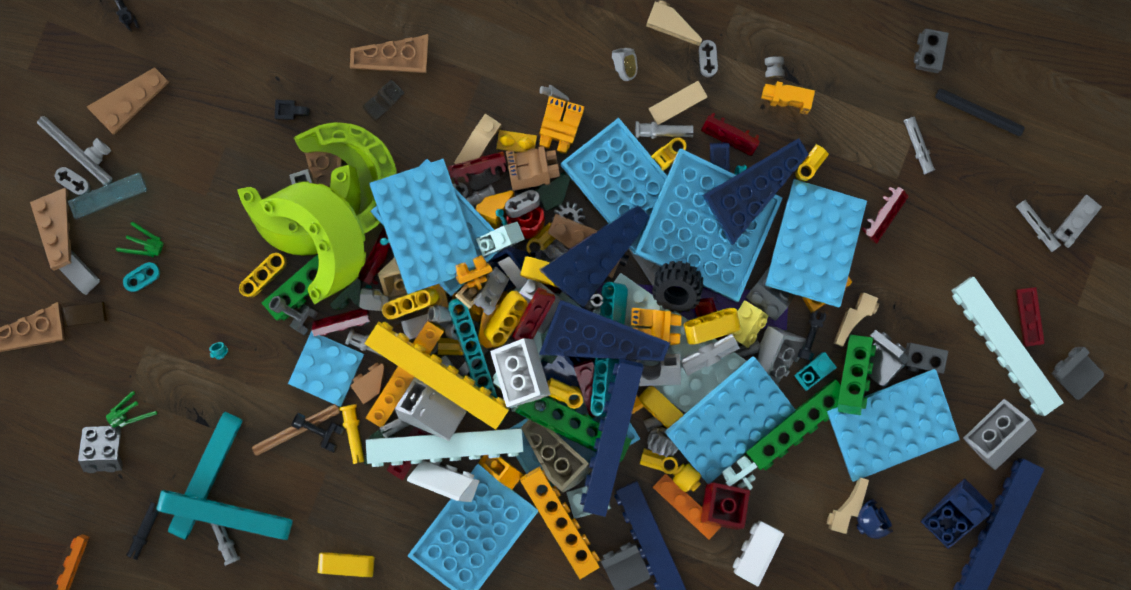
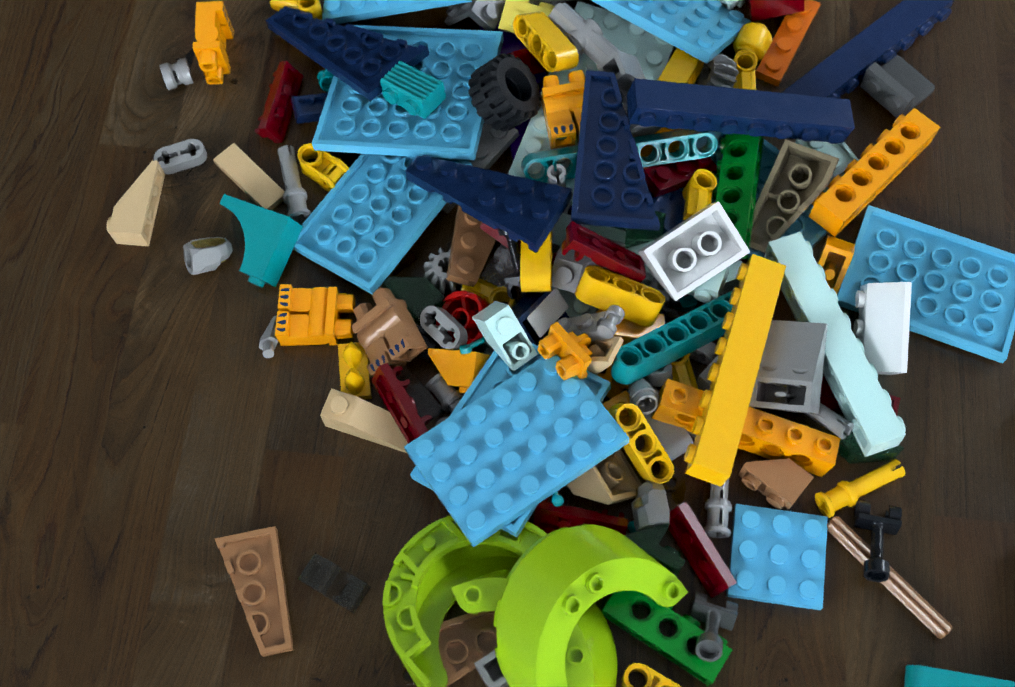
camera: 95 degrees left, 20 degrees down
(624, 105) = (267, 240): none -> teal arch
(698, 225) = (412, 90): none -> teal brick

